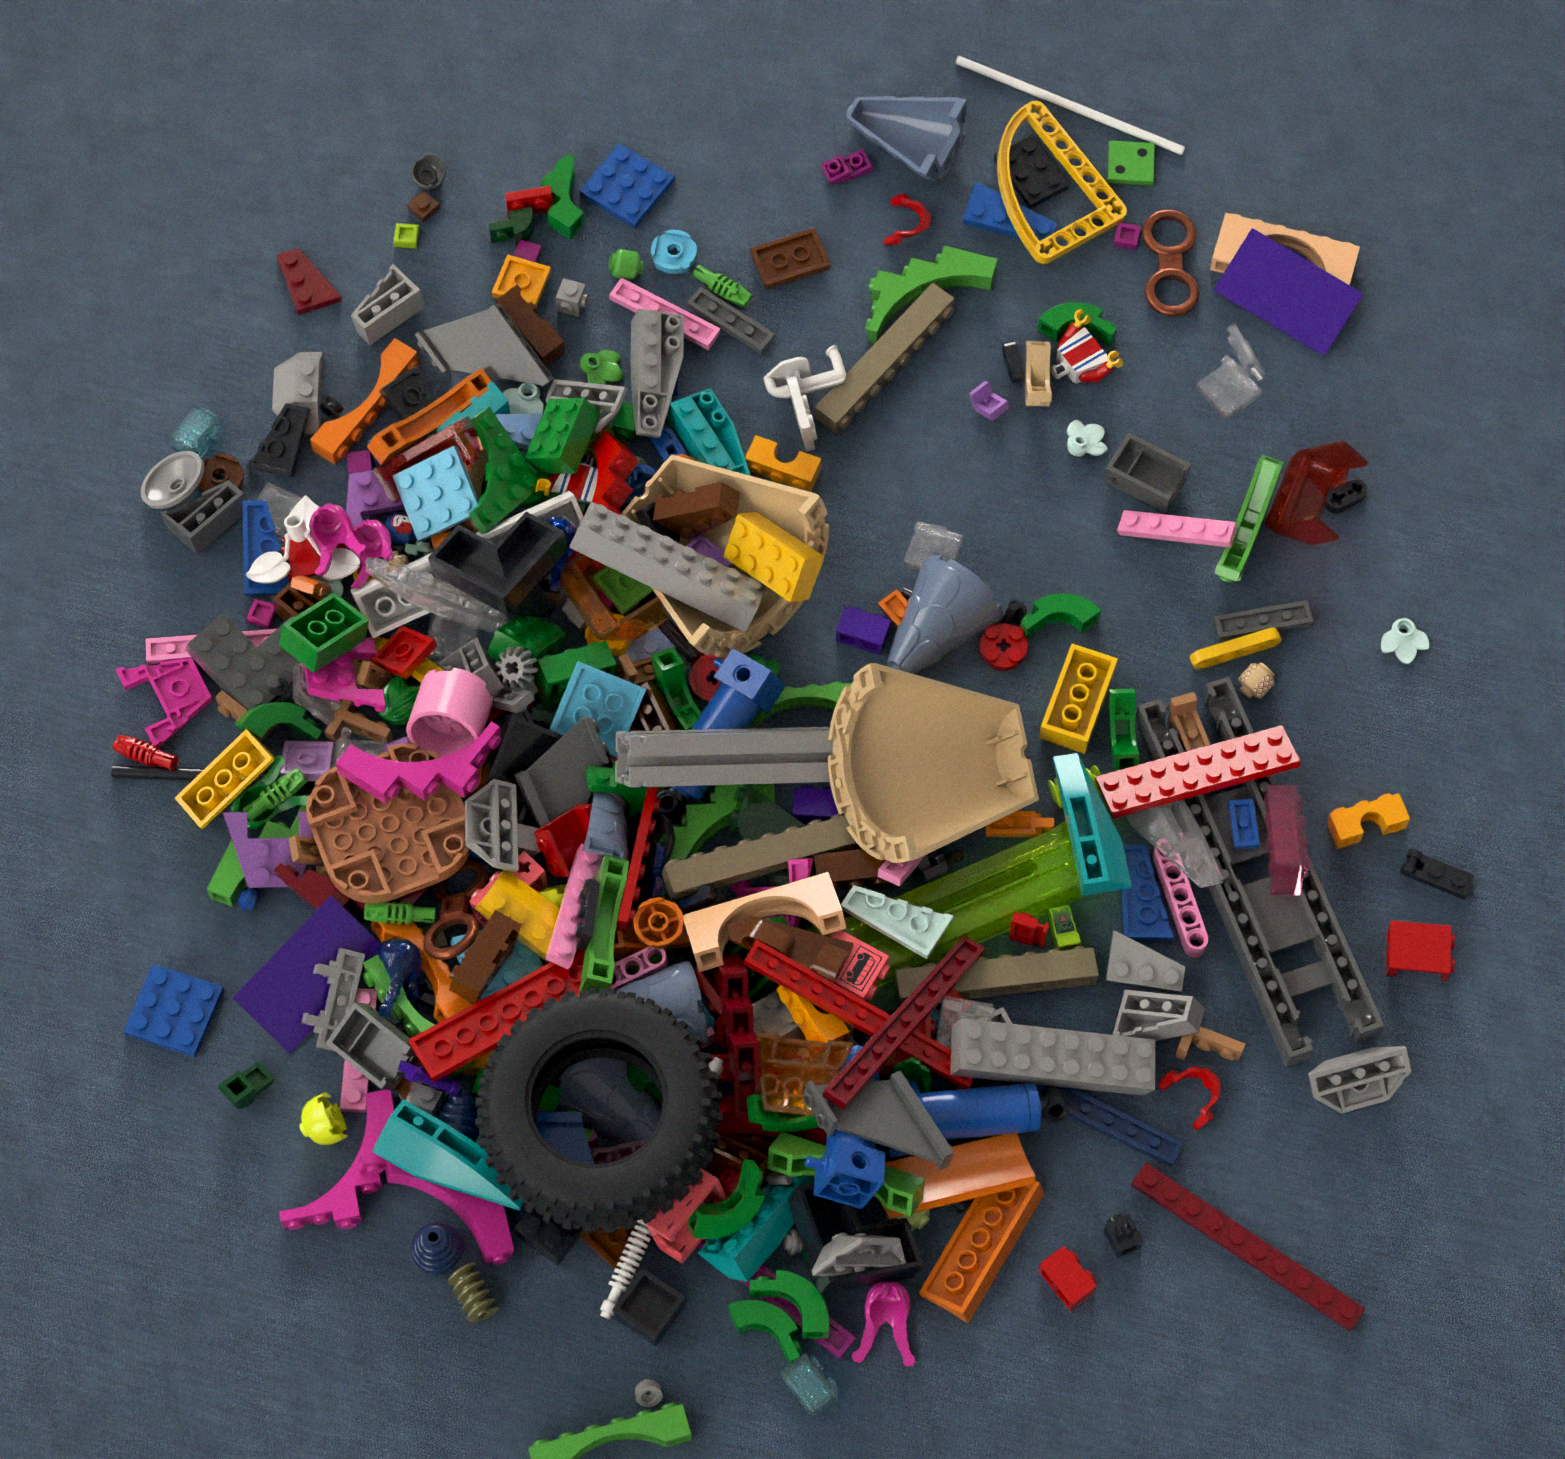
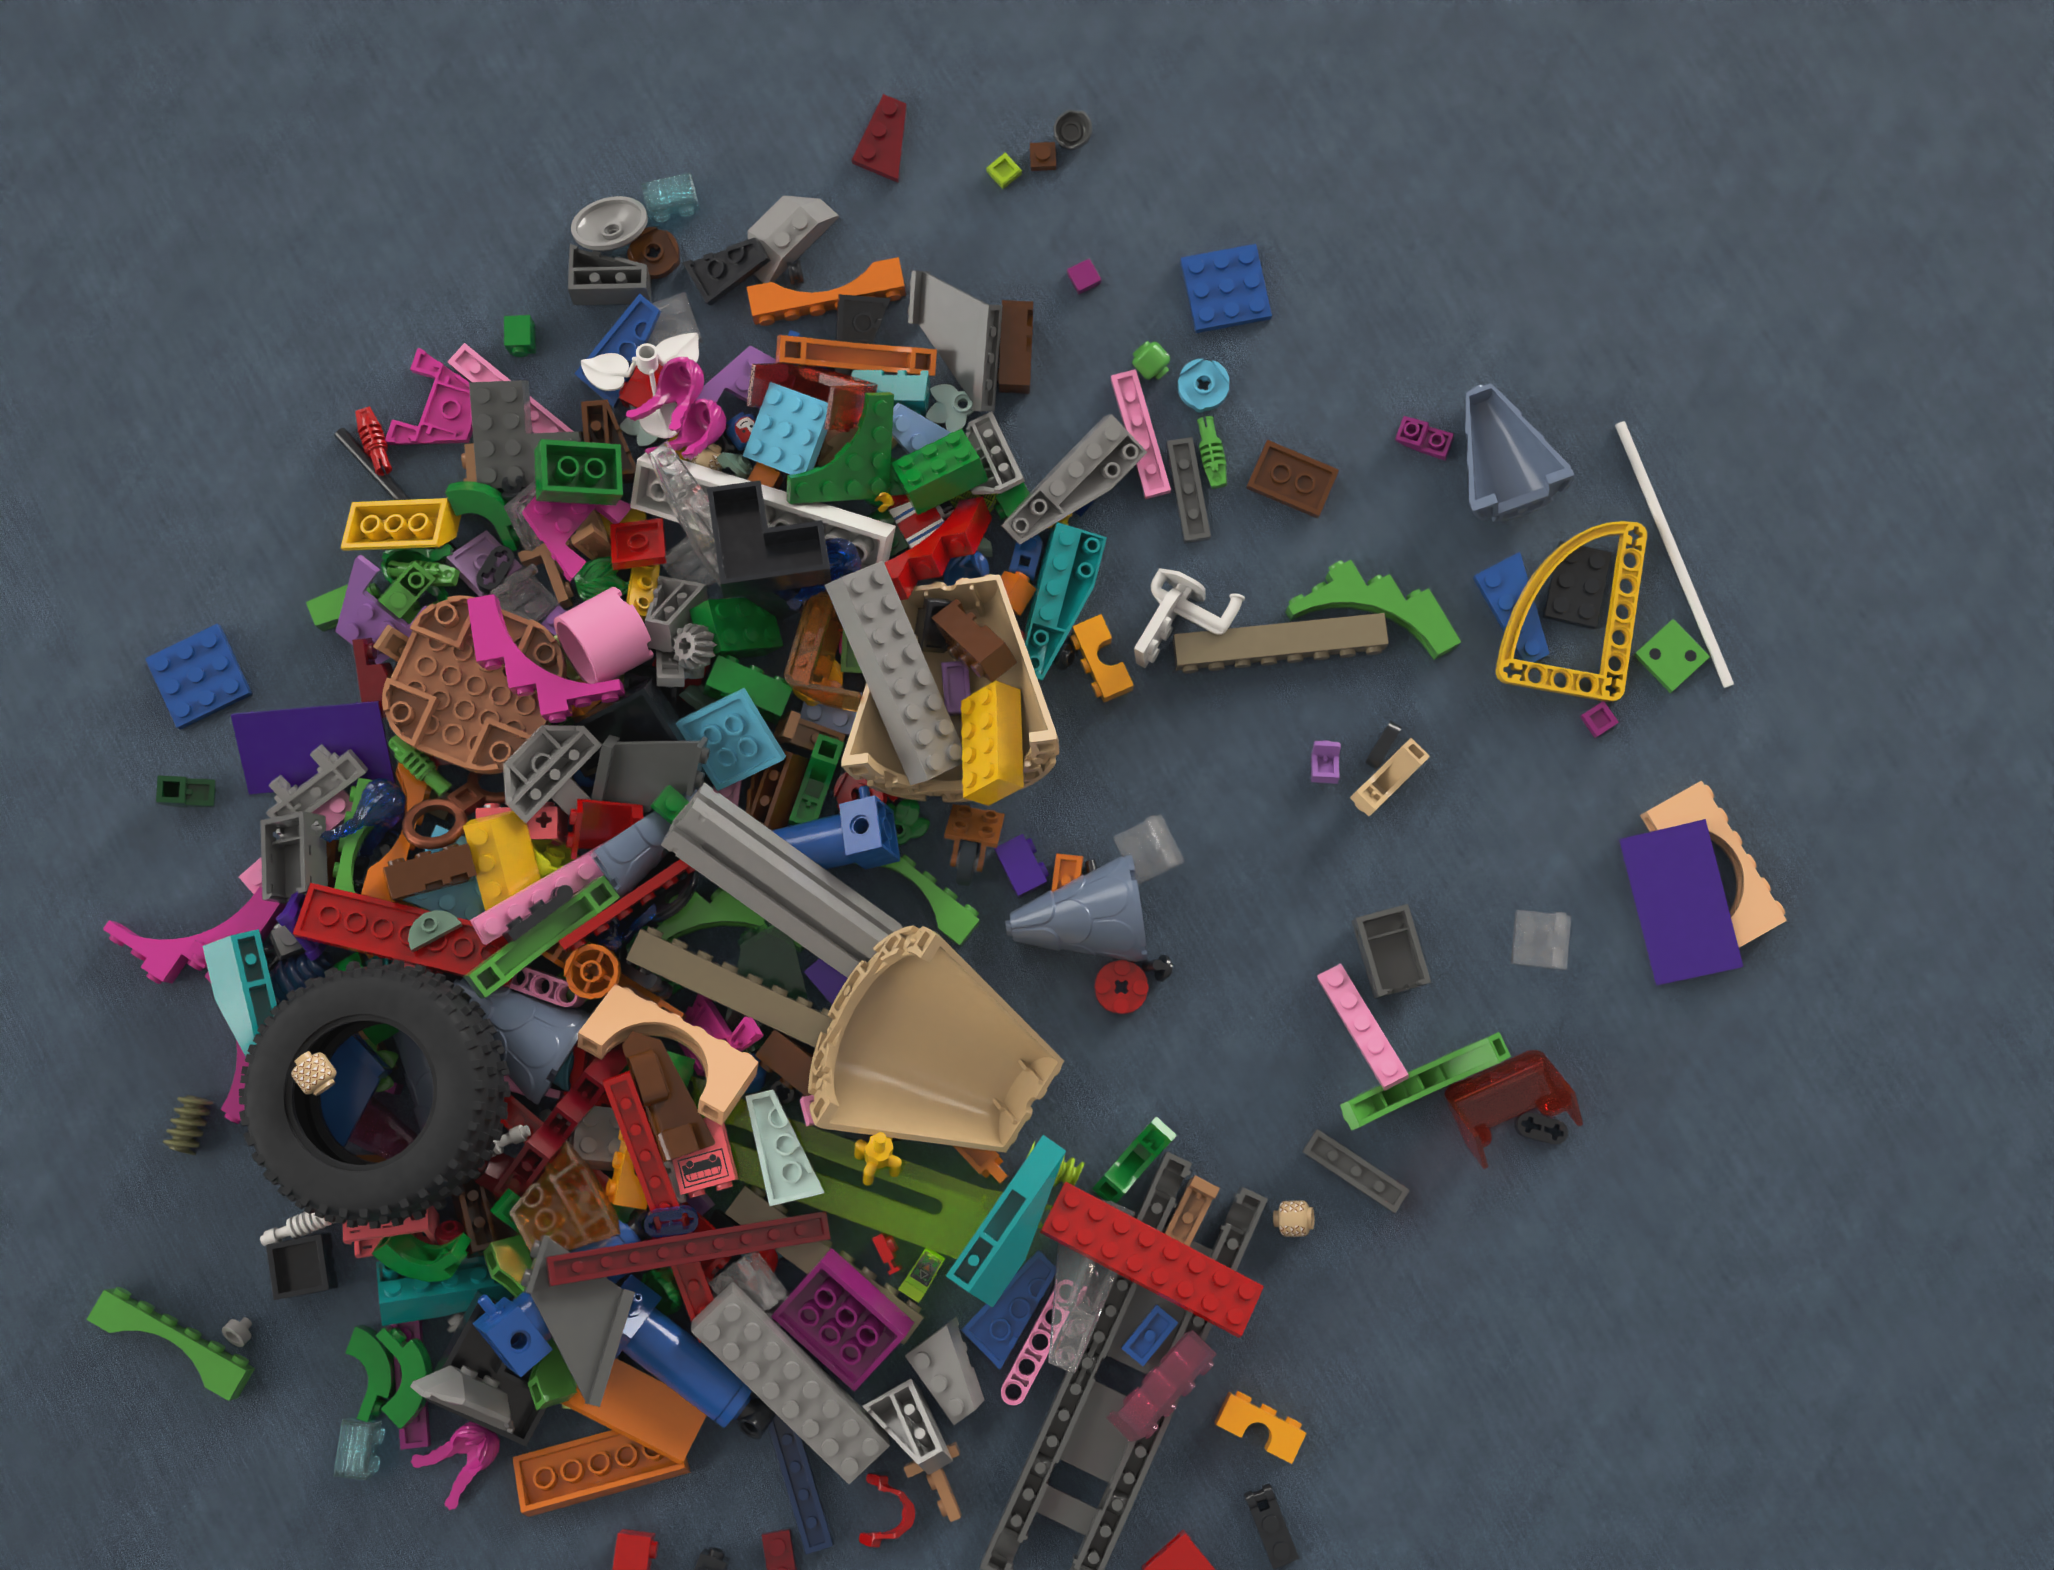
camera: 45 degrees right, 15 degrees up
(179, 602) = (519, 335): none -> green brick
(247, 899) = (332, 638): blue plate -> none
(261, 614) = (572, 401): dark pink tile -> none
(276, 811) = (406, 589): none -> bright green slope
(310, 585) = (615, 417): orange slope -> none
(317, 753) = (490, 566): none -> black beam
(322, 1121) = (213, 878): neon yellow cylinder -> none
(359, 461) = (768, 340): magenta tile -> none
(387, 307) = (921, 222): light grey wedge -> none
(440, 1255) = (203, 1063): dark blue piece -> none
(518, 227) = (1098, 246): dark green brick -> none
(522, 990) = (431, 927): none -> sand green plate
(527, 274) = (1054, 298): light orange plate -> none
(537, 198) = (1126, 231): red plate -> none
(555, 1108) = (314, 1073): none -> tan head
(563, 214) = (1165, 240): green arch -> none
(571, 298) = (1076, 350): light grey brick -> none
(605, 369) = (1042, 440): bright green plate -> none
(823, 647) = (973, 827): none -> dark orange plate
(871, 1011) = (671, 1214): none -> clear blue beam
(919, 208) = (1440, 512): red helmet -> none
(964, 857) = (877, 1154): none -> yellow plant
(1046, 988) = (843, 1319): none -> magenta slope
(1058, 318) = (1478, 754): green arch -> none
(1061, 608) = (1201, 1001): green arch -> none
(1078, 698) = (1131, 1093): yellow brick -> none
(1082, 356) = (1445, 794): torso -> none
(1085, 439) = (1378, 870): light aqua plate -> none
(1170, 263) = (1610, 778): copper bar -> none
(1235, 648) = (1306, 1173): yellow beam -> none
(1245, 353) = (1586, 924): clear plate -> none
(1404, 644) = (1453, 1305): light aqua plate -> none

